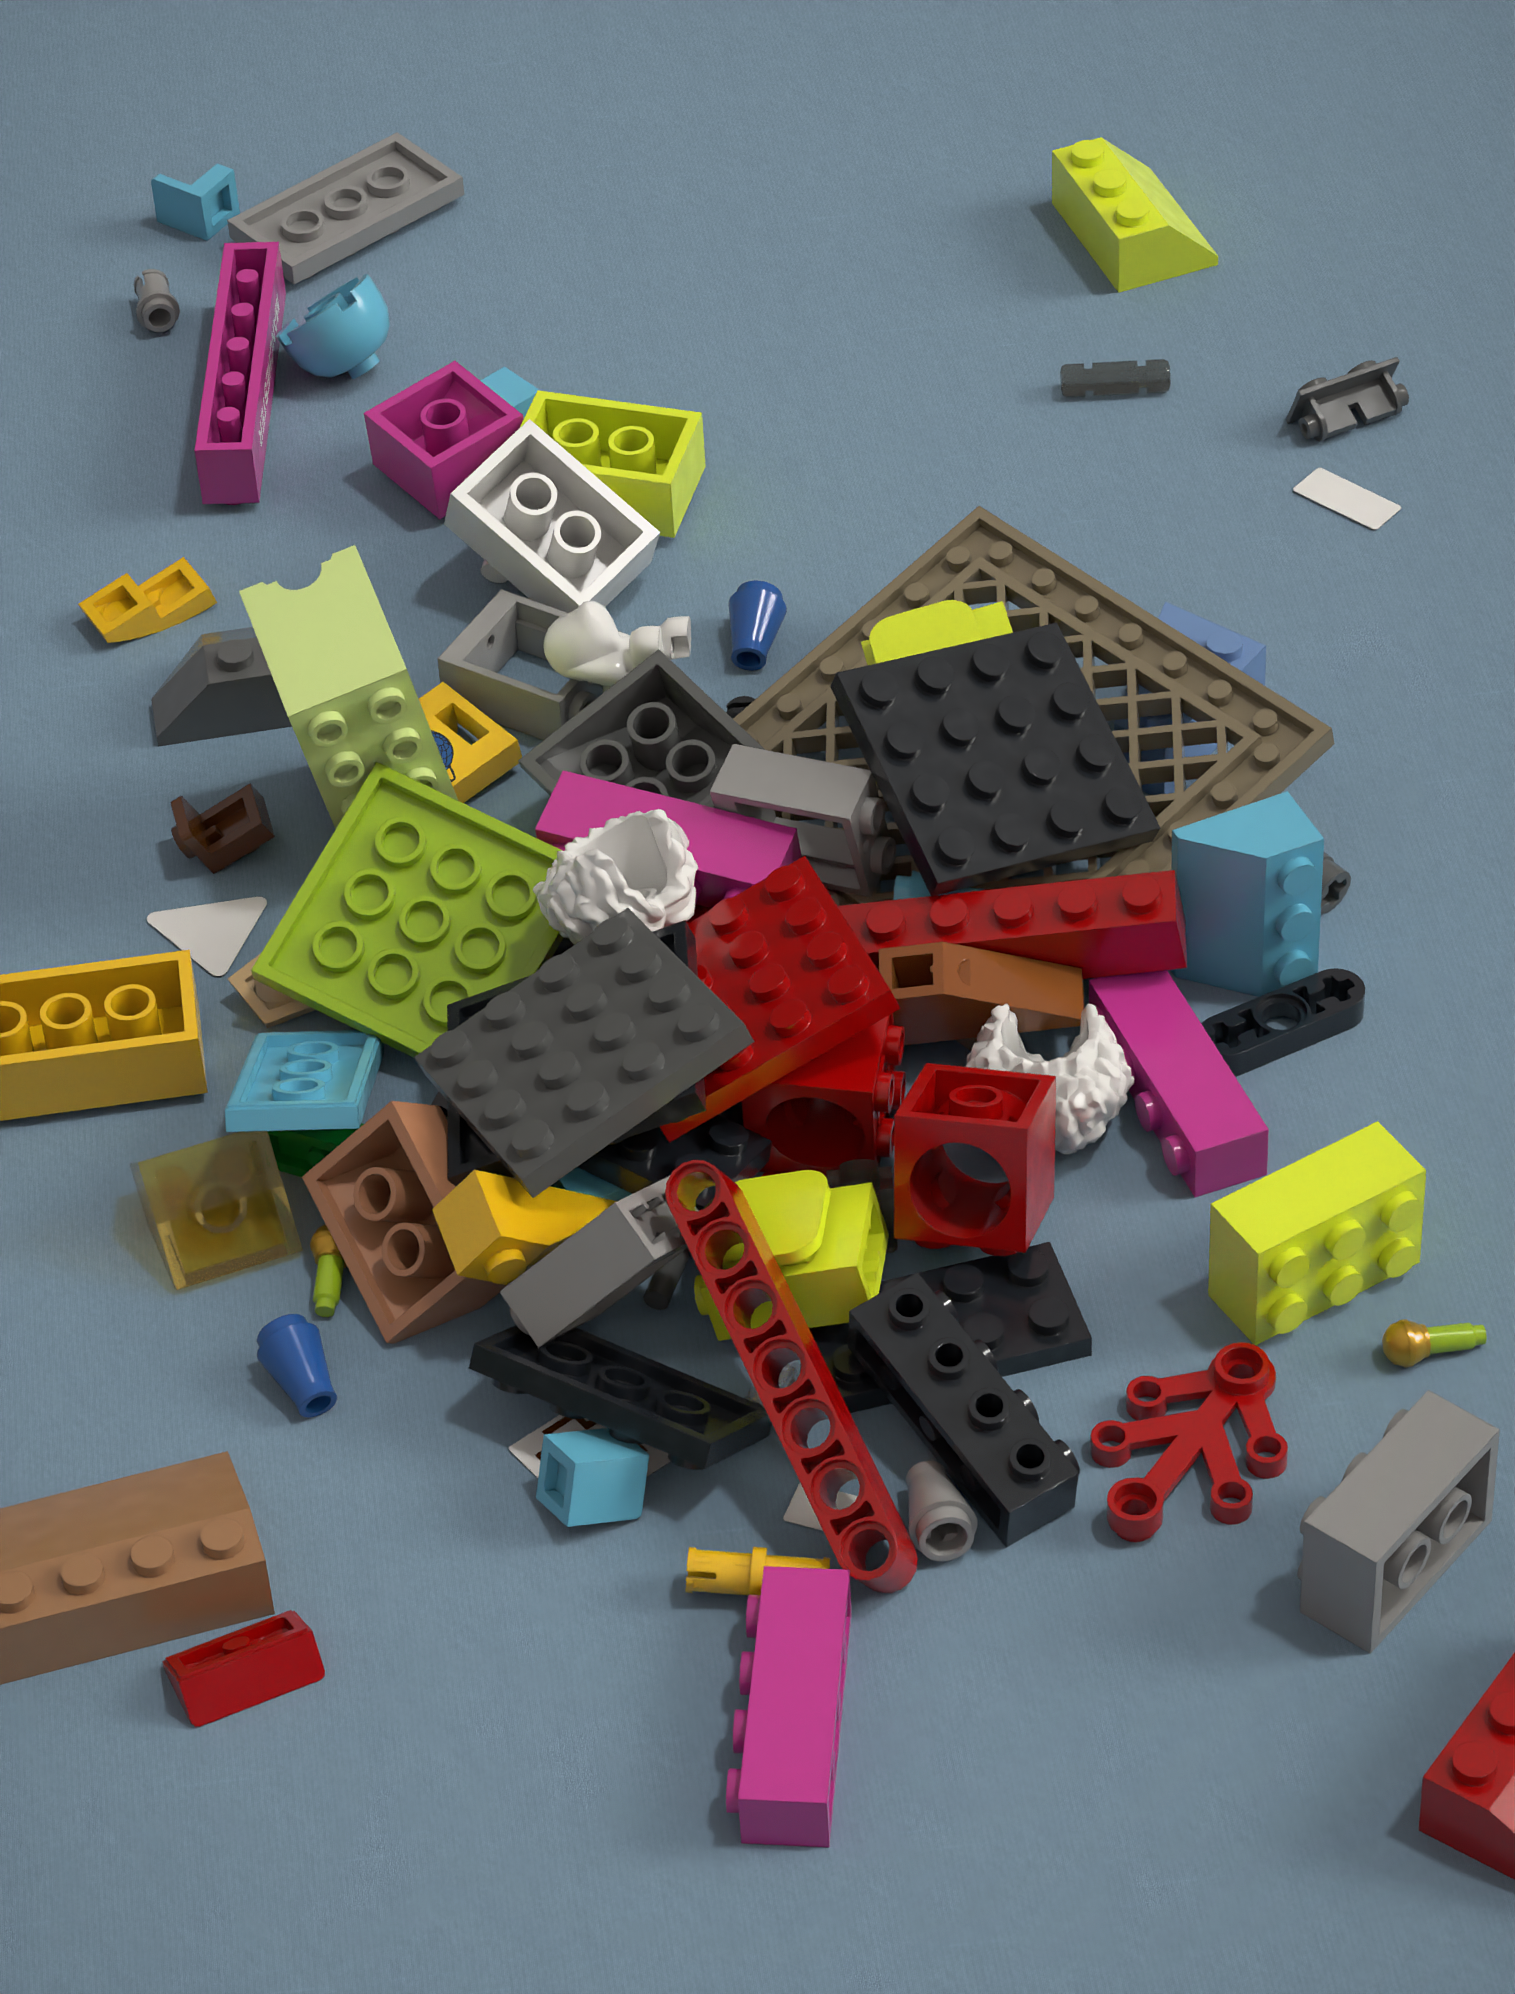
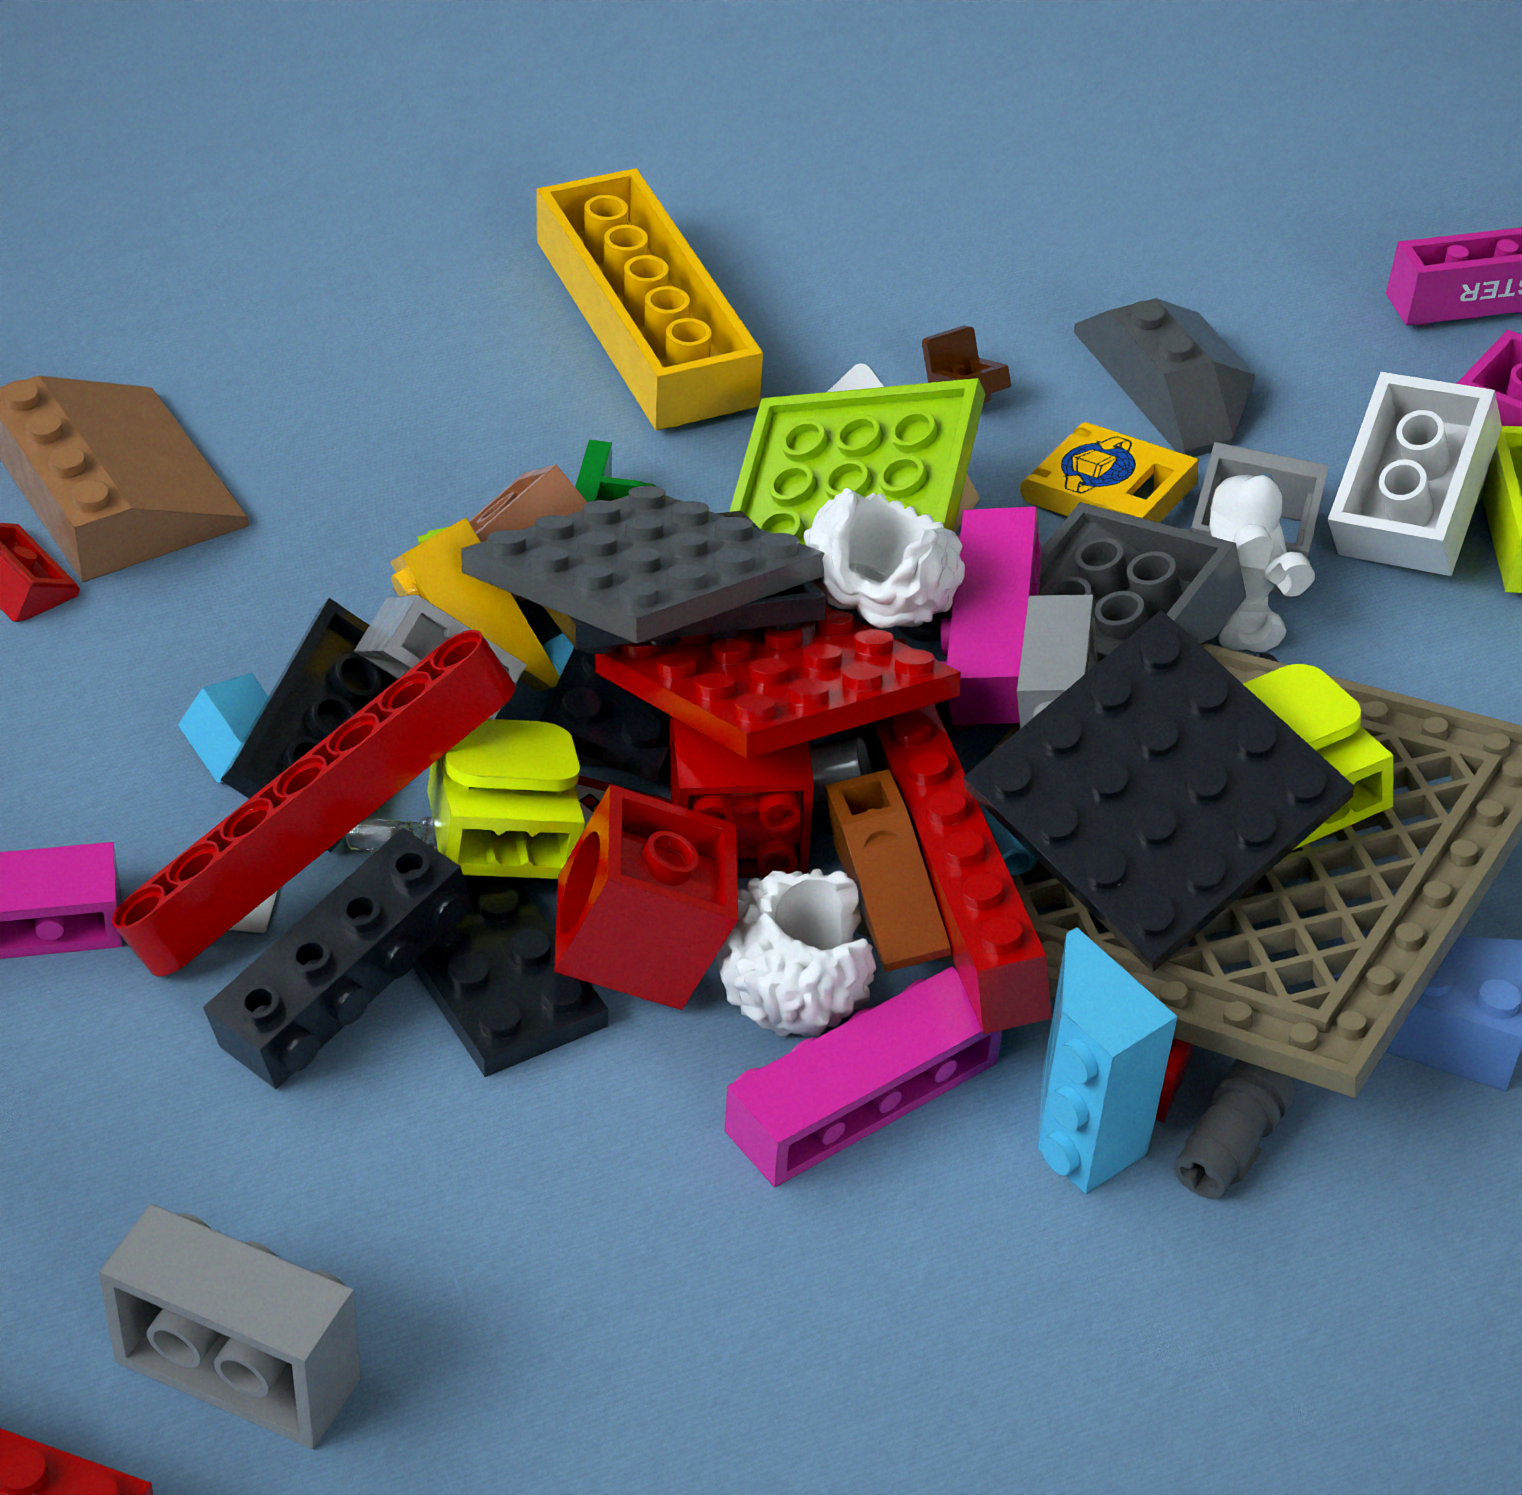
camera: 70 degrees right, 0 degrees up
(133, 611) = (1231, 284): yellow slope -> none
(216, 1207) = (503, 434): clear yellow slope -> none
(297, 1362) = (343, 531): blue cone -> none
(305, 1081) = (628, 447): medium azure tile -> none
(343, 681) = (1029, 328): yellowish green gear -> none
(736, 1571) = (139, 848): yellow pin -> none
(755, 618) = (1400, 660): blue cone -> none
(939, 1516) = (214, 968): light grey cone -> none
(1236, 1378) = (367, 1168): red plant -> none
(1316, 1233) = (635, 1204): neon yellow brick -> none
(1319, 1004) = (995, 1190): black beam -> none
(1409, 1342) = (538, 1332): piece -> none

